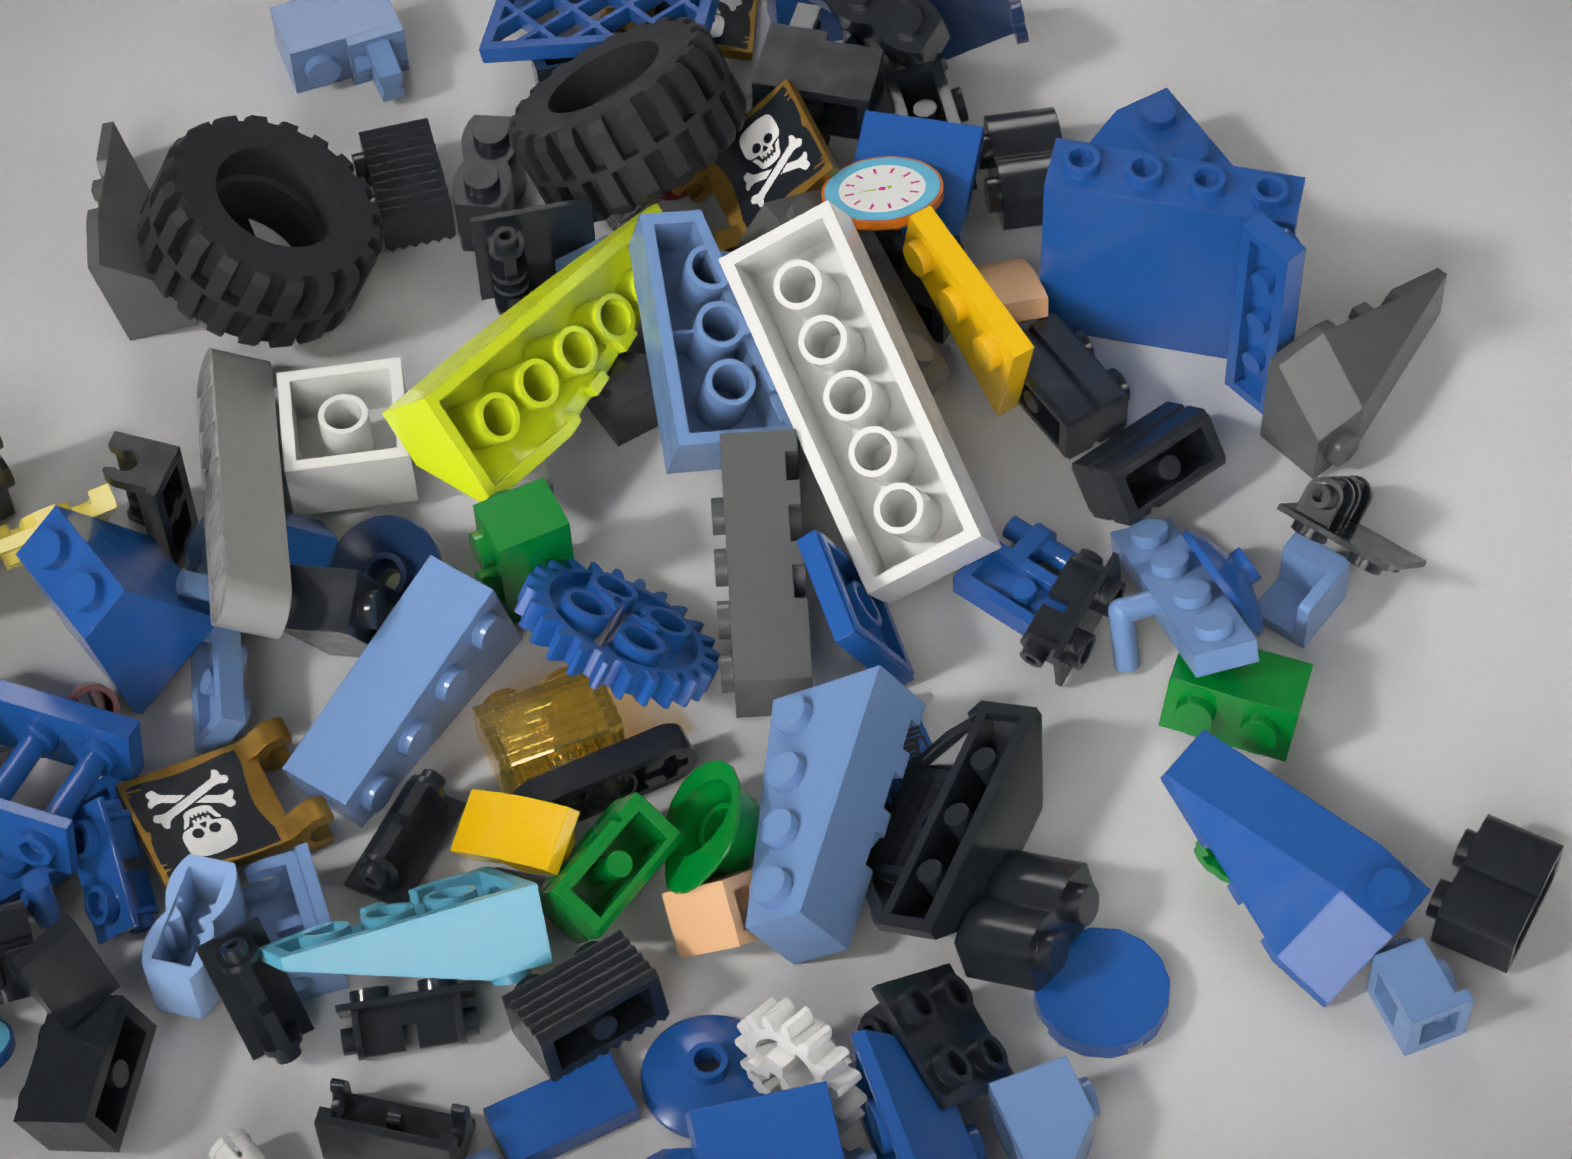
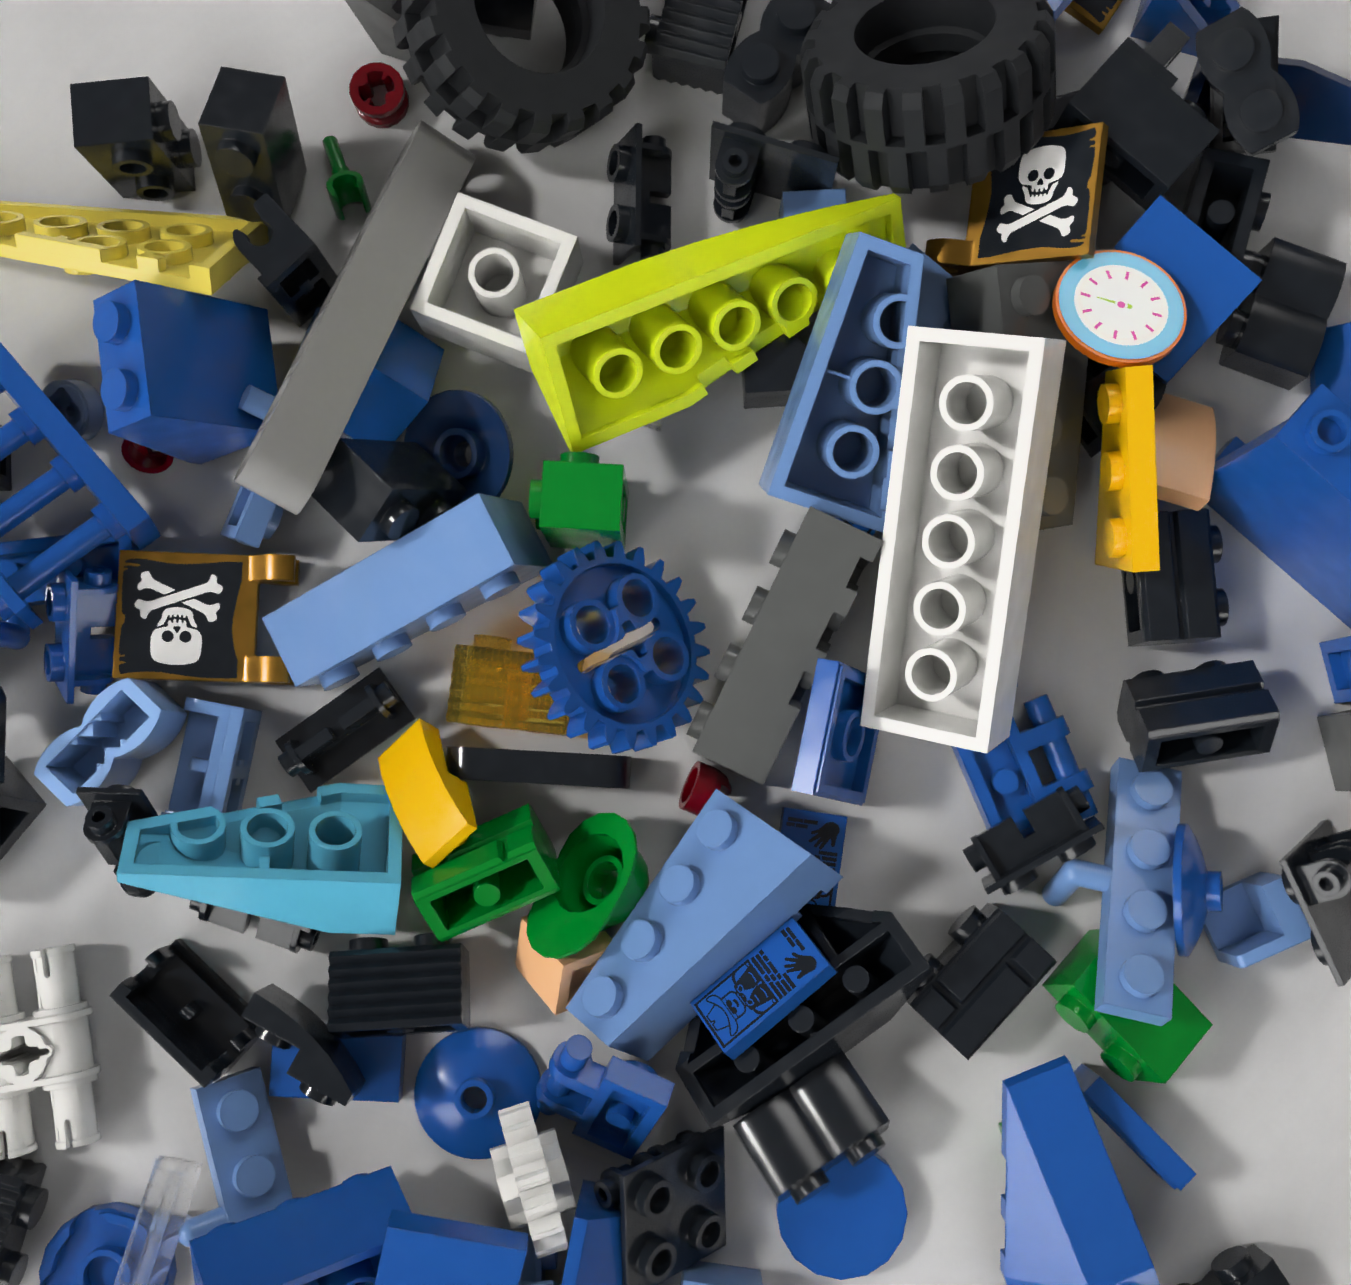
camera: 30 degrees right, 30 degrees up
(70, 424) = (252, 141): none -> black brick
(152, 349) = (362, 87): none -> dark red bush
(165, 432) = (343, 185): none -> green hand
(418, 319) = (638, 171): none -> black hinge
(550, 1084) = (322, 1063): none -> black slope
(757, 726) = (700, 786): none -> dark red hinge
(842, 961) = (610, 1103): none -> blue plate
(908, 812) = (762, 988): none -> blue tile
(1097, 745) = (979, 977): none -> black brick
(1336, 789) = (1133, 1129): none -> blue tile

